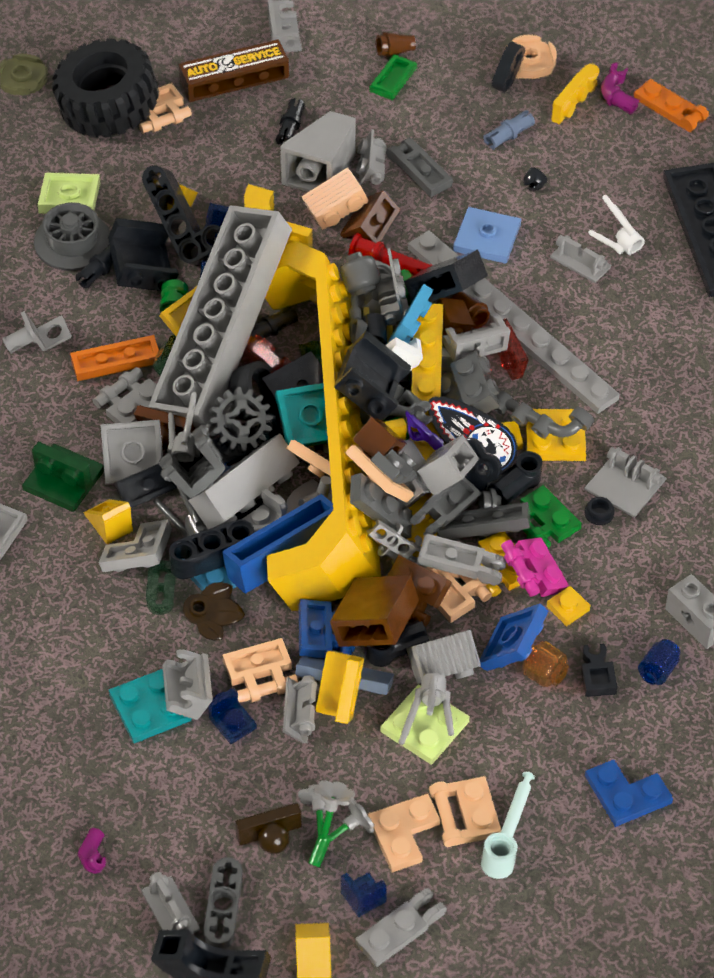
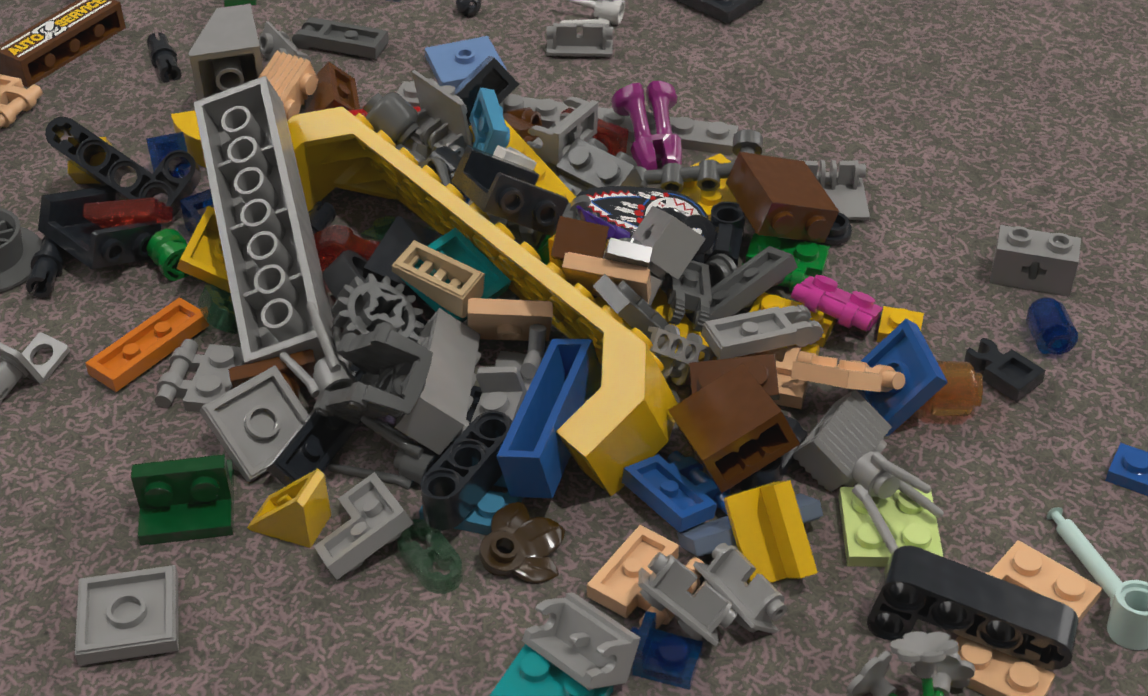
camera: 35 degrees left, 10 degrees down
(163, 255) = (127, 212): none -> clear red tile
(262, 707) = (697, 612): none -> light grey hinge
(299, 430) = (454, 297): none -> tan slope
(385, 769) = (971, 605): none -> black beam
(473, 619) = (848, 374): none -> light nougat plate
(548, 384) = (647, 147): none -> magenta piece
(571, 471) = (781, 197): none -> reddish brown brick

